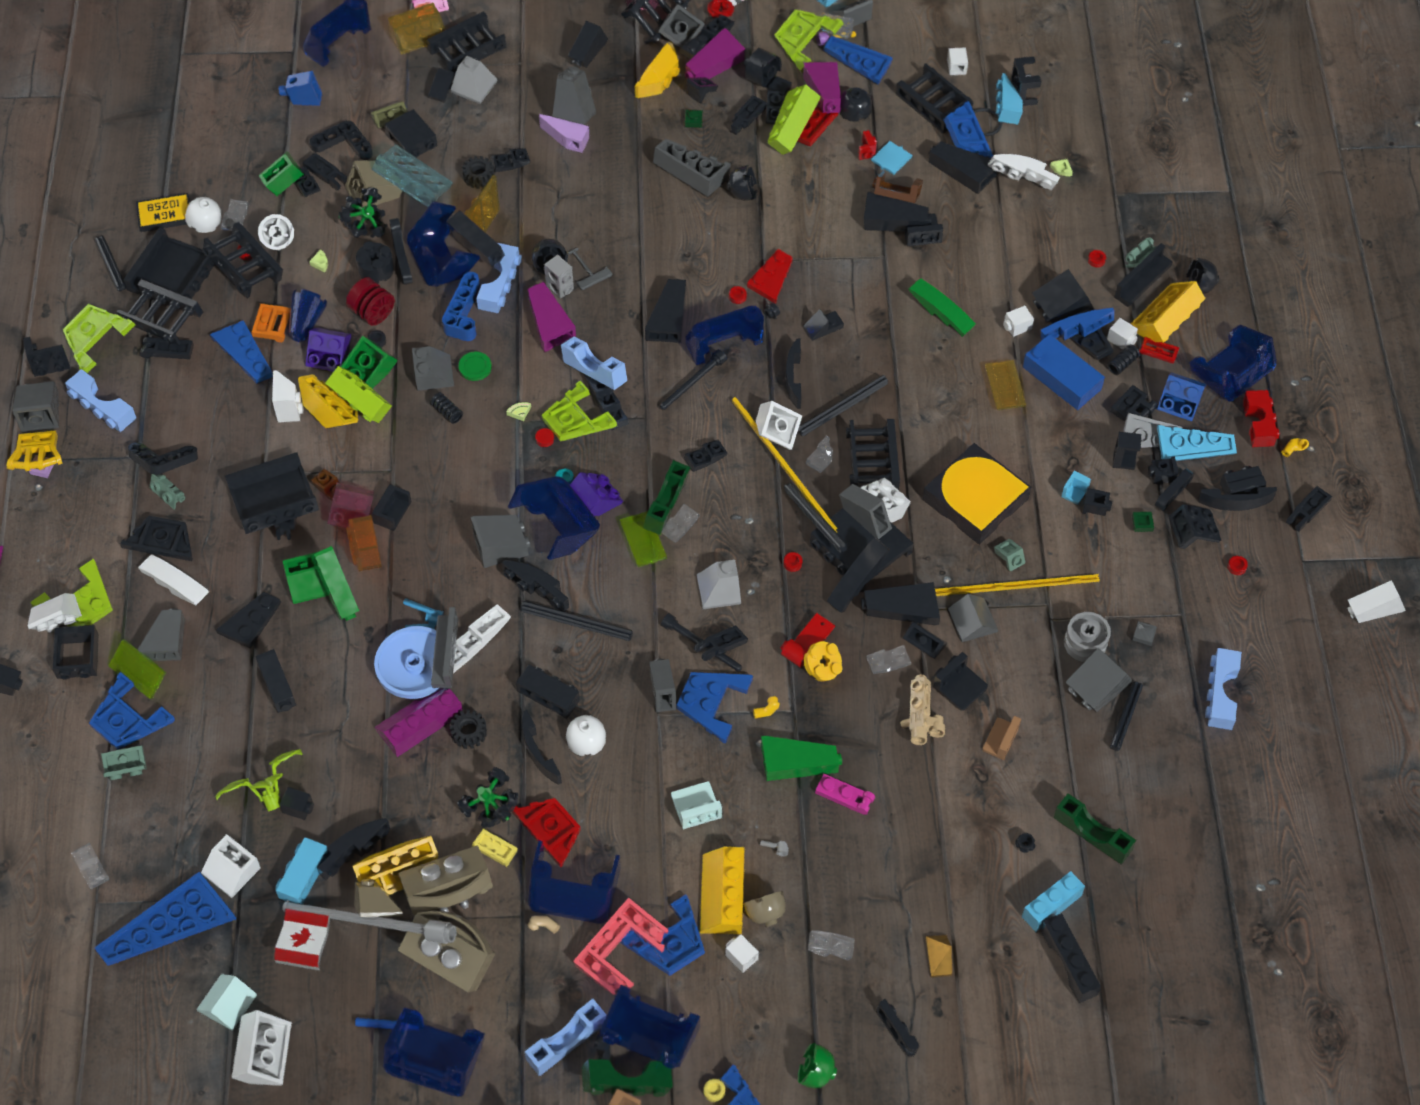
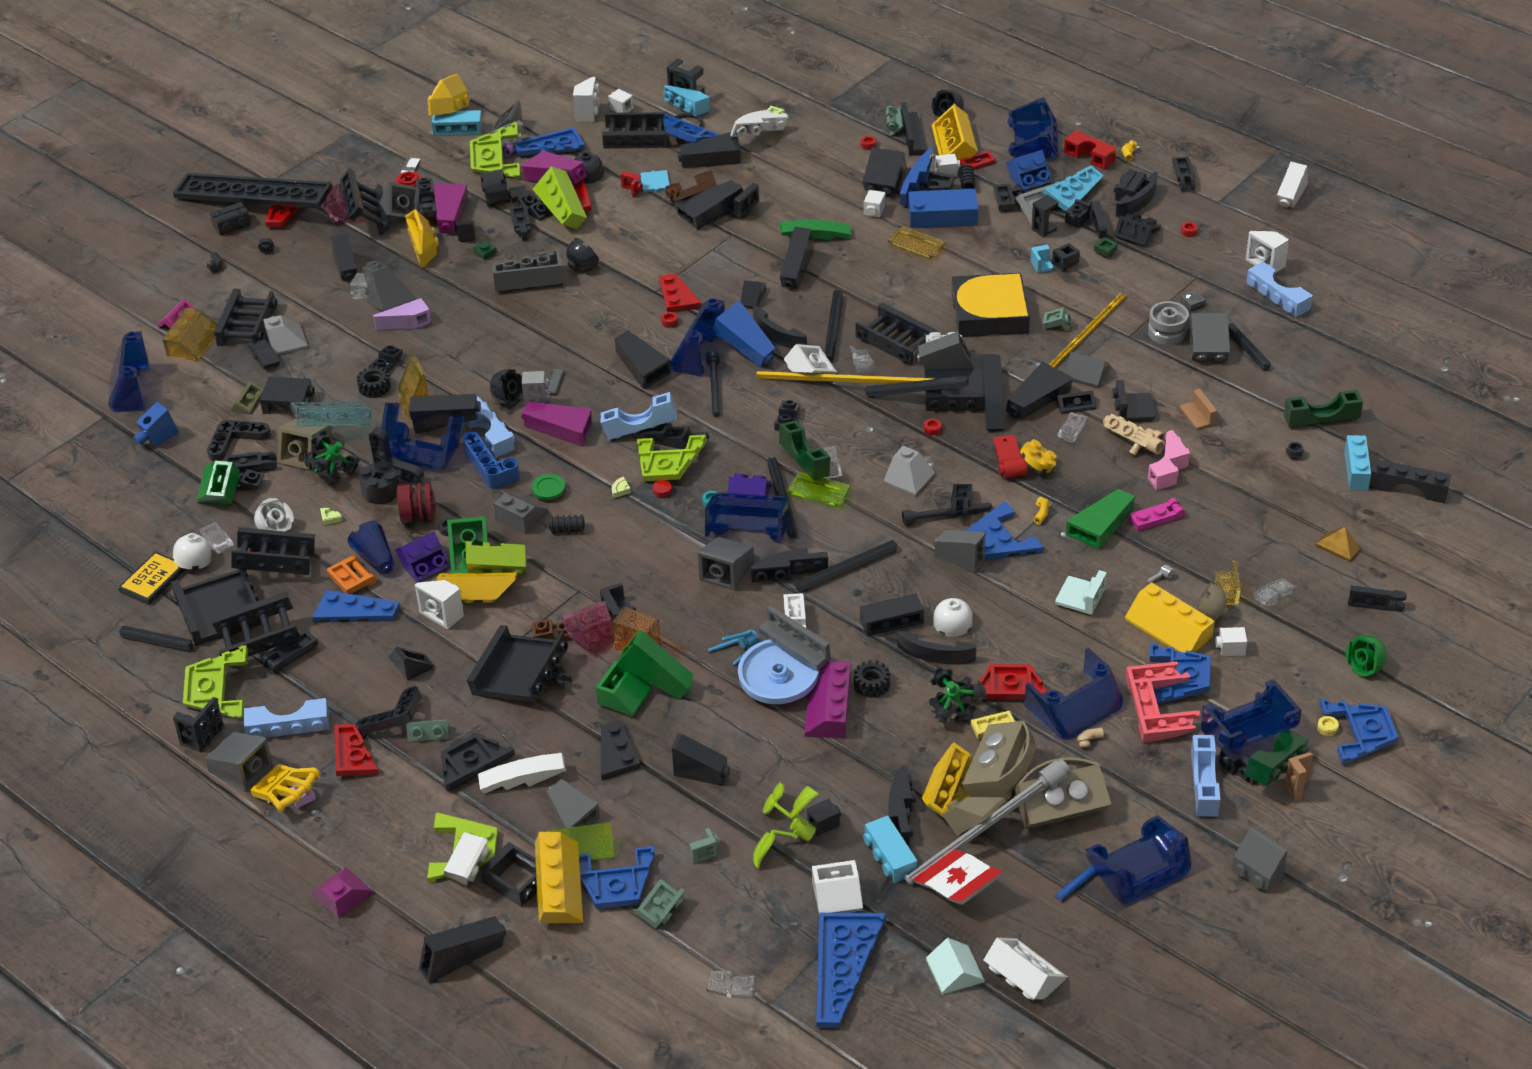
camera: 45 degrees left, 15 degrees down
(83, 683) = (558, 878): none -> yellow slope
(104, 463) = (351, 753): none -> red wing
(200, 750) = (704, 848): none -> sand green bracket
(219, 428) = (410, 662): none -> black slope
(611, 521) = (780, 490): none -> black axle
(758, 352) = (744, 334): none -> blue slope
(808, 905) = (1229, 583): none -> clear yellow panel
(889, 322) = (797, 257): none -> black slope
(923, 758) = (1165, 472): none -> bright pink arch
(928, 39) = (586, 100): none -> white slope
(1260, 646) = (1267, 248): none -> white slope

